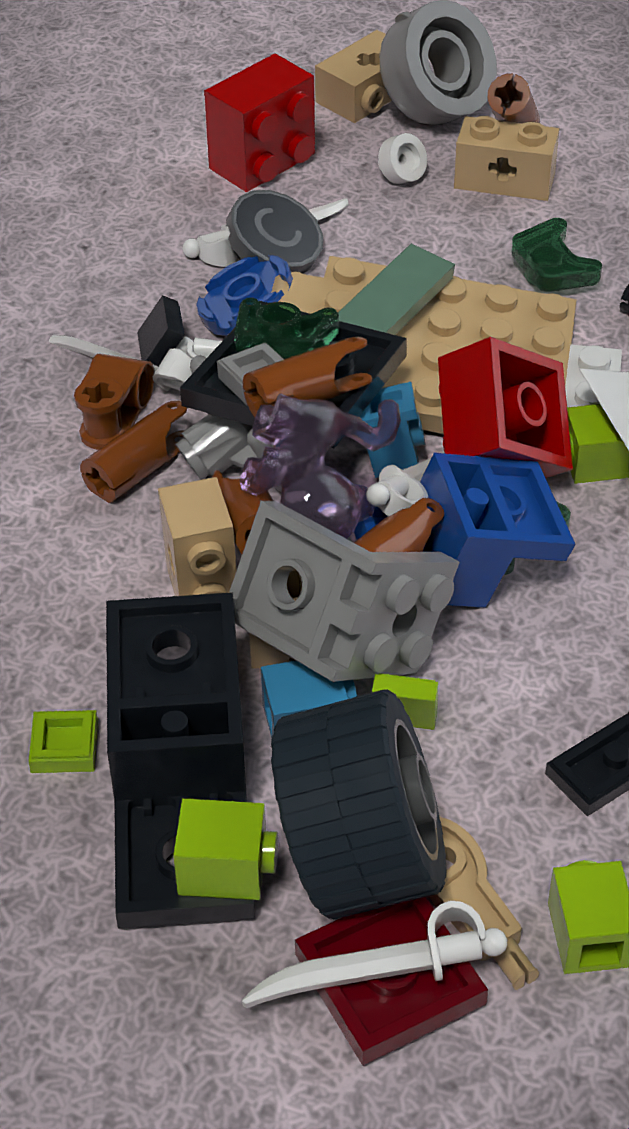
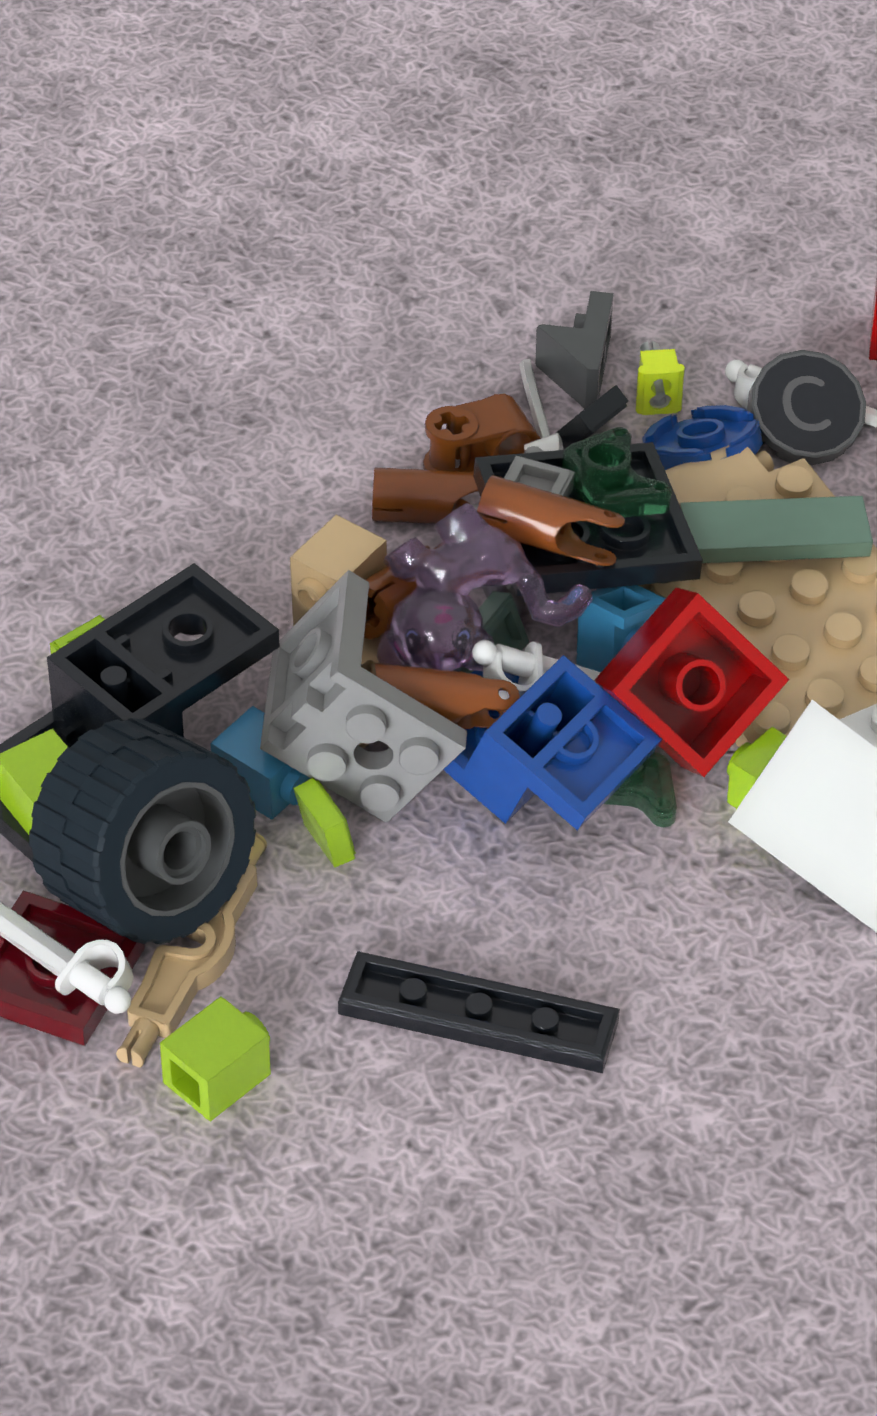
camera: 50 degrees right, 0 degrees up
(93, 300) = (578, 354): none -> dark grey slope
(161, 276) = (659, 381): none -> neon yellow piece

